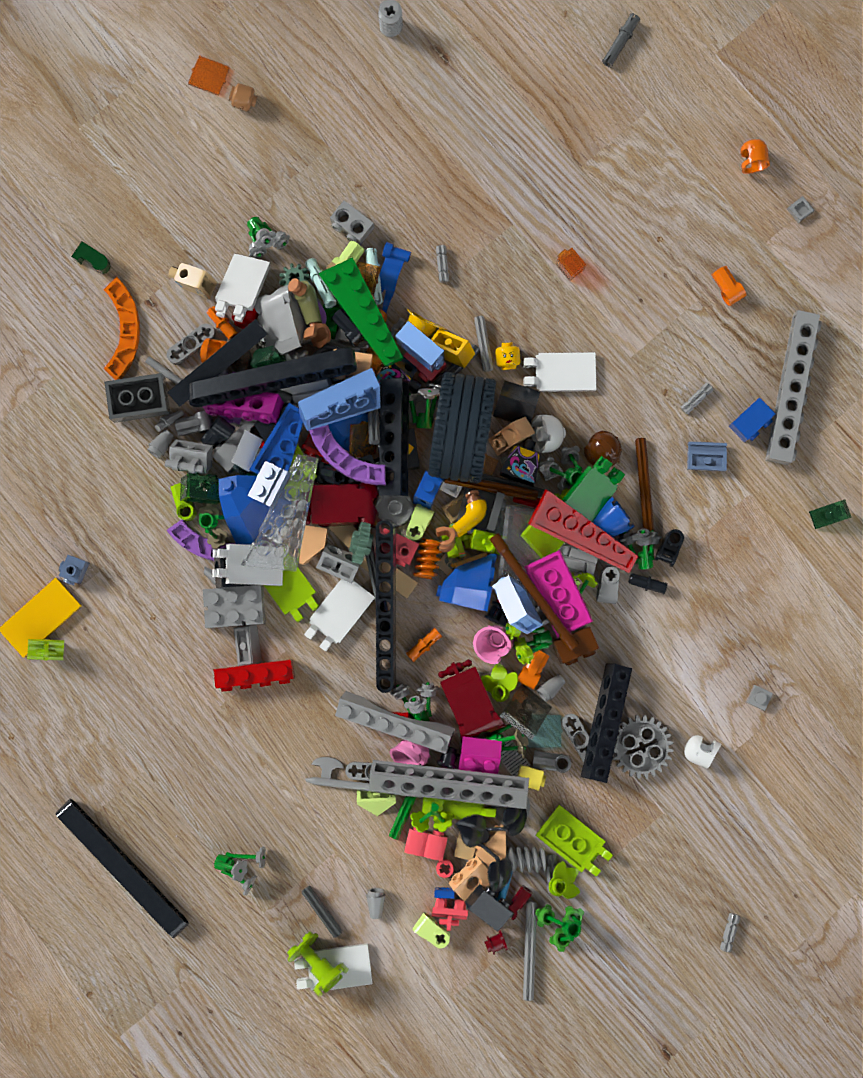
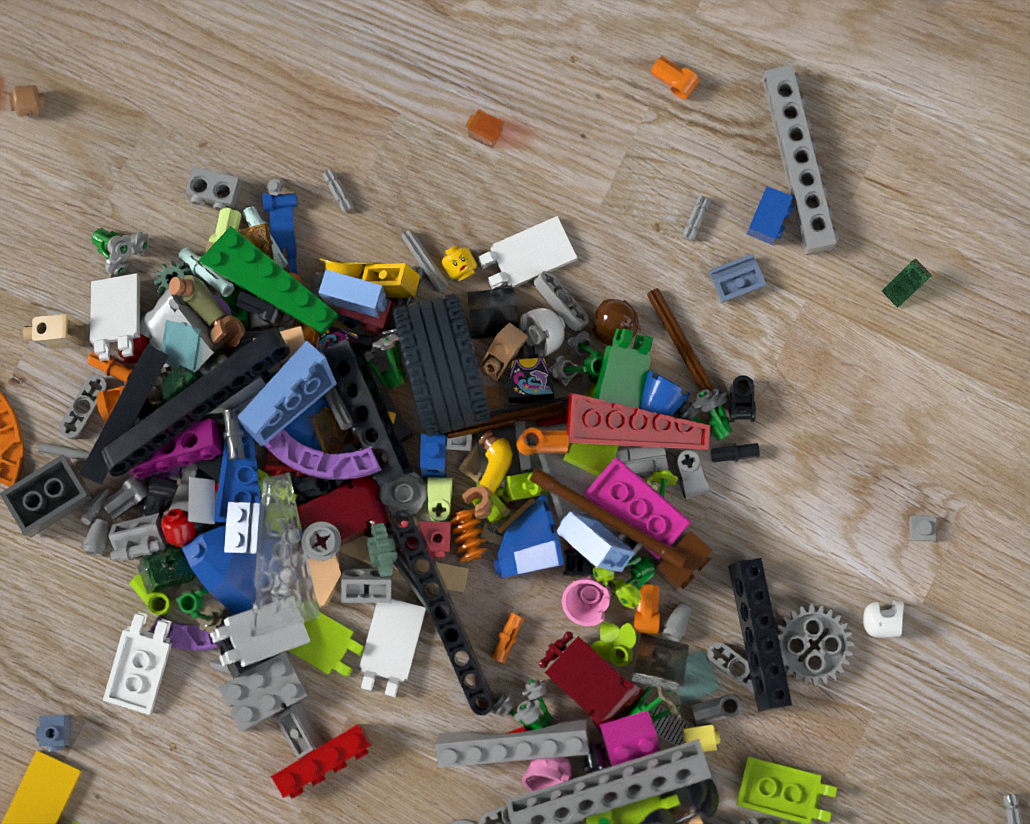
camera: 20 degrees left, 5 degrees down
(153, 548) = (139, 665): none -> white tile
(221, 463) = (177, 528): none -> red head
(280, 330) = (181, 344): none -> clear light blue piece
(290, 413) = (233, 435): none -> dark grey pin
(312, 513) = (324, 530): none -> light grey gear
(398, 240) = (275, 186): none -> light grey bar
(512, 516) = (544, 441): none -> orange piece
(572, 425) = (561, 301): none -> light grey beam

